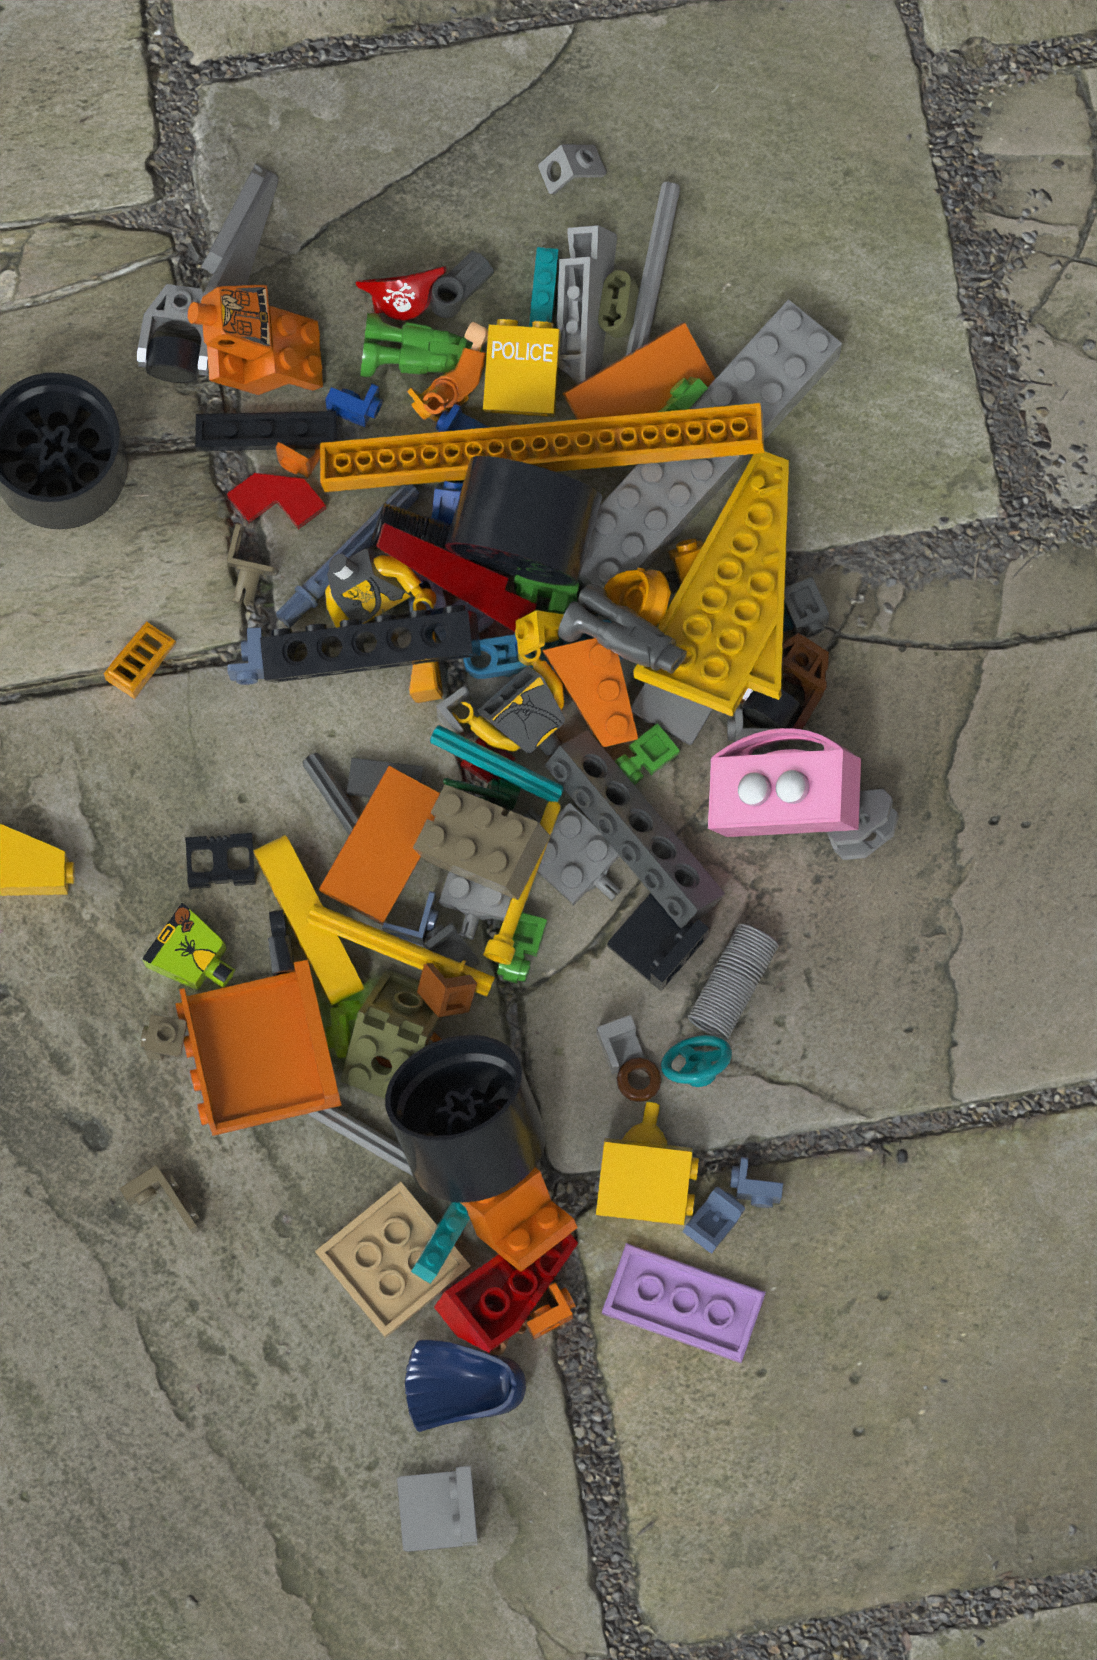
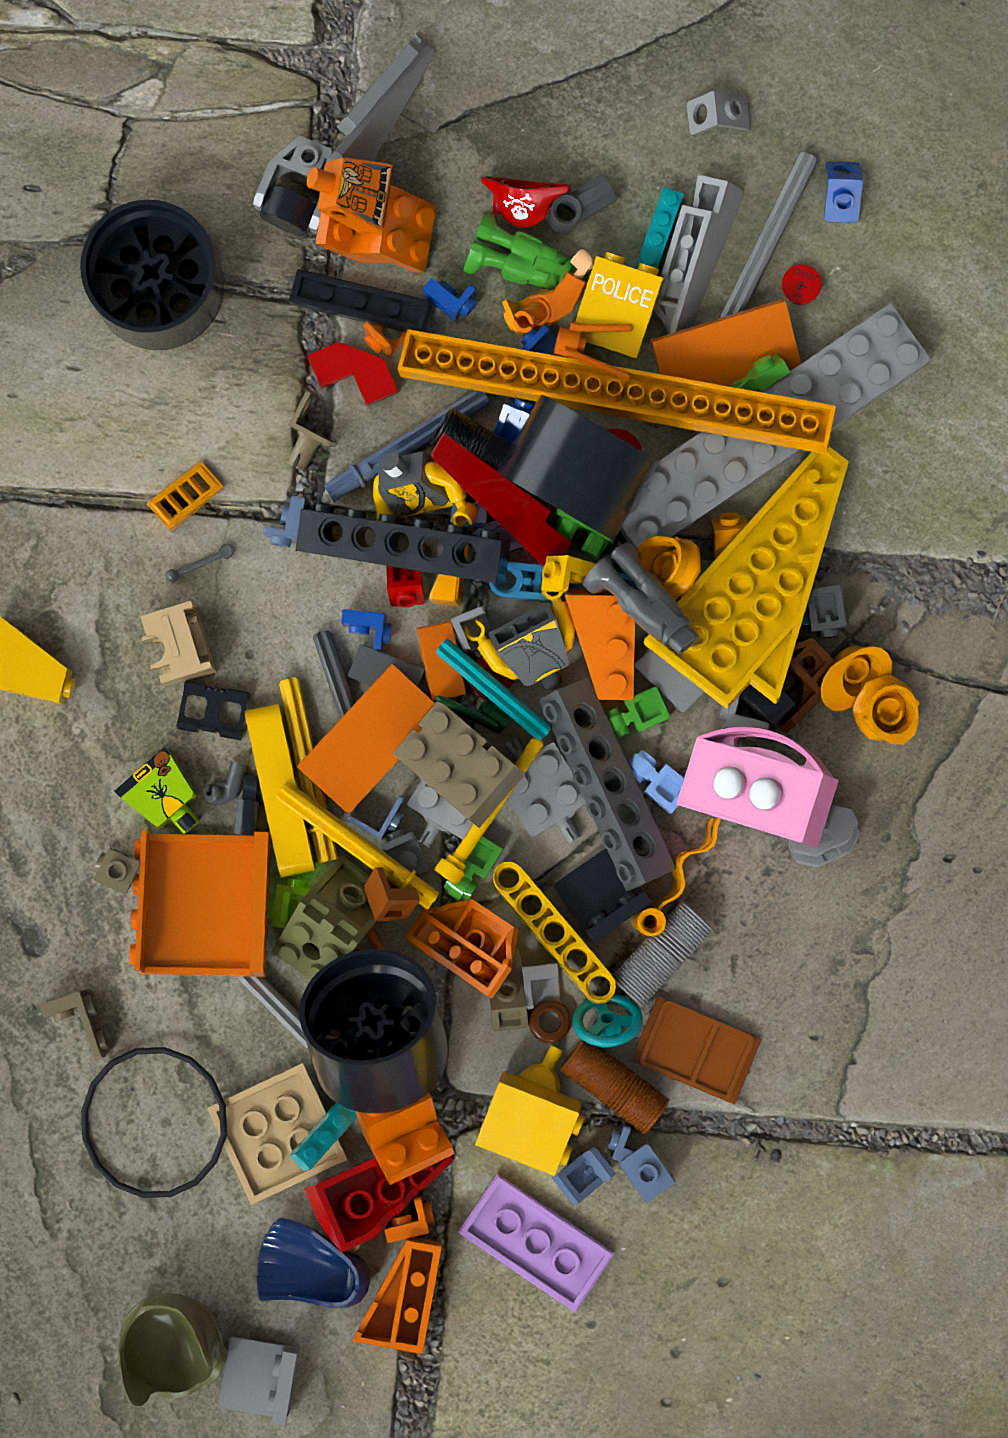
camera: 15 degrees right, 10 degrees up
(171, 793) = (185, 643): none -> tan piece
(193, 704) = (224, 552): none -> dark grey hinge
(256, 932) = (227, 789): none -> dark grey arm
(318, 870) = (302, 745): none -> yellow axle
(337, 1285) = (85, 1130): none -> black piece
(340, 1492) = (169, 1348): none -> olive piece
(351, 733) = (361, 623): none -> blue bracket
(382, 690) = (404, 587): none -> red bracket
(436, 761) = (440, 676): none -> orange slope
(486, 414) = (572, 345): none -> orange plant
(536, 1018) = (467, 942): none -> orange wedge
(565, 1388) = (404, 1300): none -> orange wedge
(587, 1058) = (509, 1002): none -> dark tan bracket
(619, 303) = (727, 262): olive beam -> none
(626, 1003) = (549, 915): none -> yellow beam
(690, 819) = (663, 785): none -> light blue plate
(696, 307) = (801, 284): none -> red piece
(709, 1119) = (603, 1076): none -> dark orange piece
(714, 211) = (843, 192): none -> bracket
(715, 943) = (656, 918): none -> light orange flag
(776, 1197) = (647, 1172): none -> sand blue bracket
(793, 1070) = (696, 1050): none -> dark orange piece
(852, 663) = (850, 672): none -> light orange piece
(891, 689) = (886, 710): none -> light orange hat

